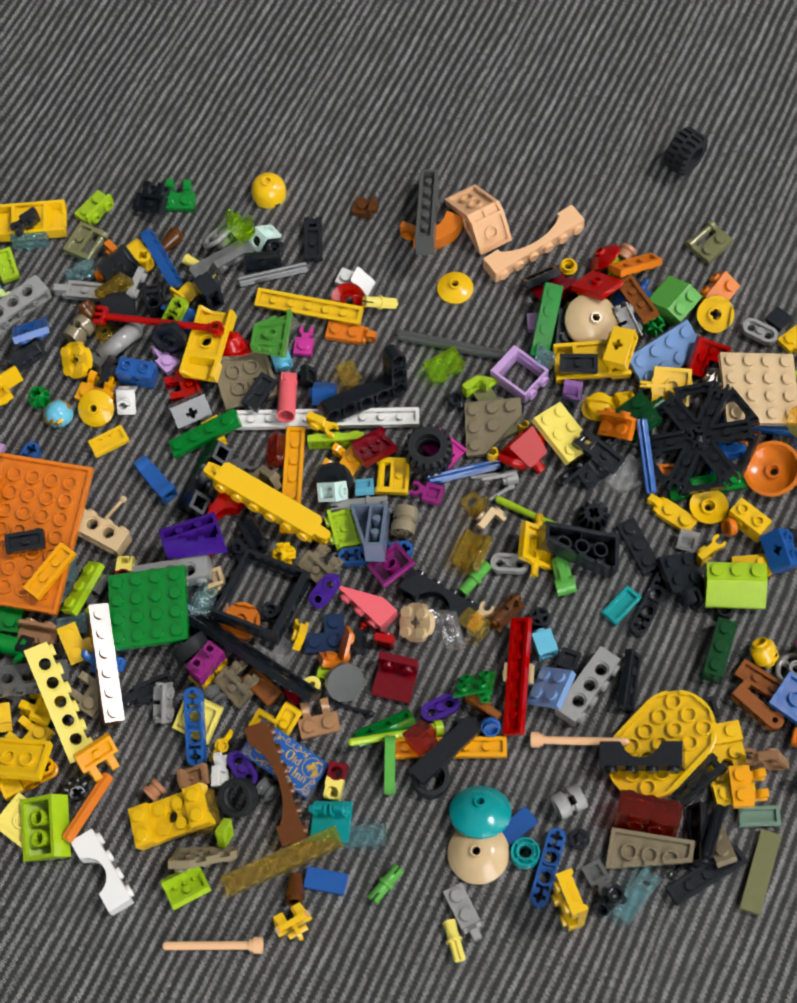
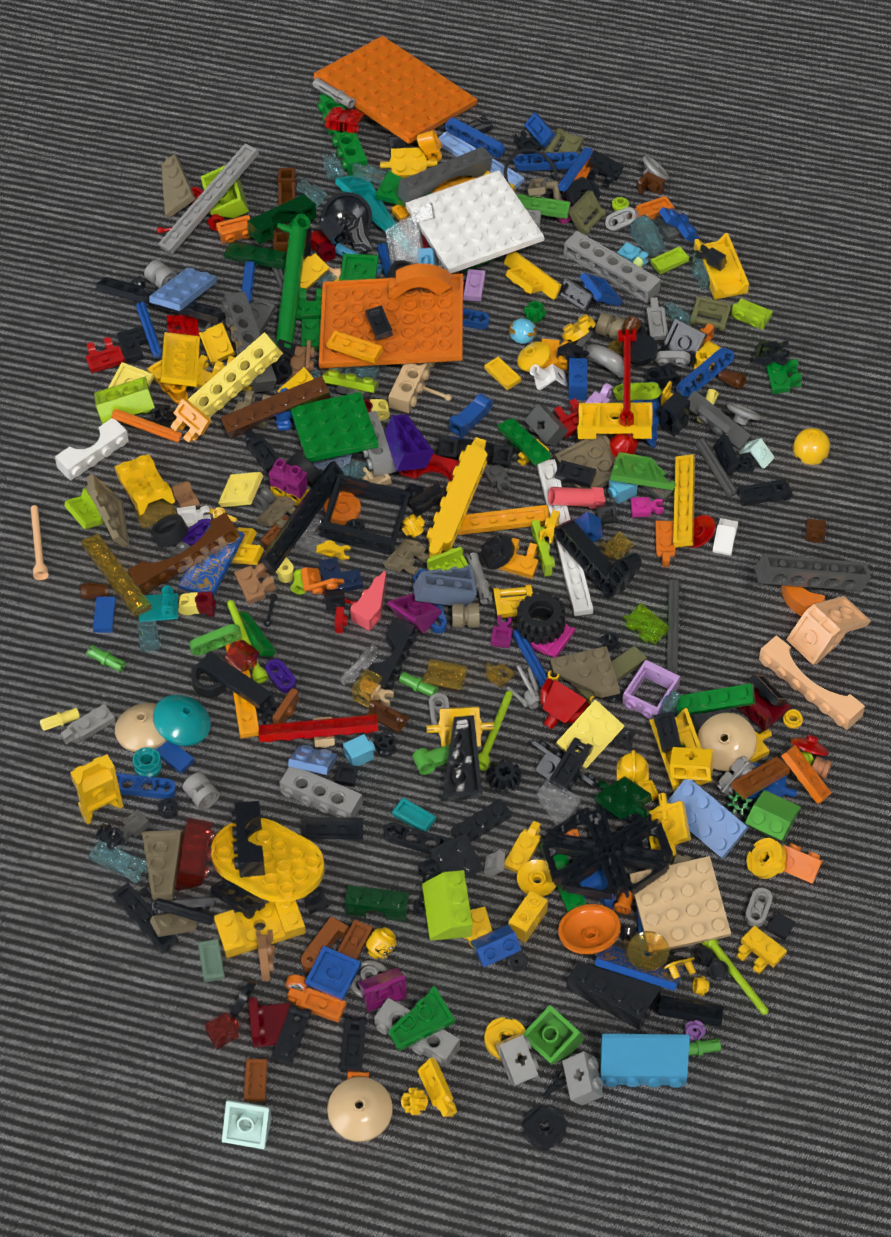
camera: 75 degrees right, 10 degrees down
(118, 283) = (663, 339): clear yellow plate -> none
(154, 790) = (169, 471): nougat wheel -> none
(164, 711) = (251, 461): light grey hinge -> none
(174, 332) = (613, 388): black plate -> none
(198, 726) = (211, 493): blue beam -> none
(224, 832) = (136, 527): lime plate -> none
(239, 227) = (757, 424): clear neon green bracket -> none
(268, 476) = (488, 497): dark tan bracket -> none
(276, 449) = (516, 502): clear red plate -> none
(300, 917) = (59, 594): yellow hips -> none
(324, 590) = (381, 562): dark purple plate -> none
(332, 491) = (482, 550): light aqua bracket -> none
(344, 682) = (291, 592): dark grey tile -> none
(364, 487) = (497, 579): medium azure tile -> none
(372, 447) = (536, 573): dark red bracket -> none
(380, 302) = (703, 557): light yellow axle -> none
(395, 677) = (303, 635): dark red bracket -> none
(426, 620) = (360, 640): tan plate -> none
(455, 294) = (742, 630): yellow dish -> none
(476, 383) = (626, 649): lime slope -> none
(476, 684) = (303, 697): green hinge -> none
(485, 517) = (482, 681): tan bracket -> none
(490, 726) = (264, 714): blue plate -> none
(539, 740) = (260, 759): light nougat piece -> none
(572, 389) = (645, 739): medium lavender plate -> none
(596, 285) = (765, 736): red plate -> none
(616, 425) = (608, 777): orange bracket -> none
(646, 456) = (577, 809): blue axle -> none
(702, 353) = (719, 853): red plate -> none
(705, 553) = (484, 883): yellow plate -> none
(713, 246) = (858, 854): olive plate -> none
(729, 526) = (516, 899): orange tile -> none
(741, 786) = (233, 930): light orange plate -> none
(760, 872) = (155, 966): olive tile -> none

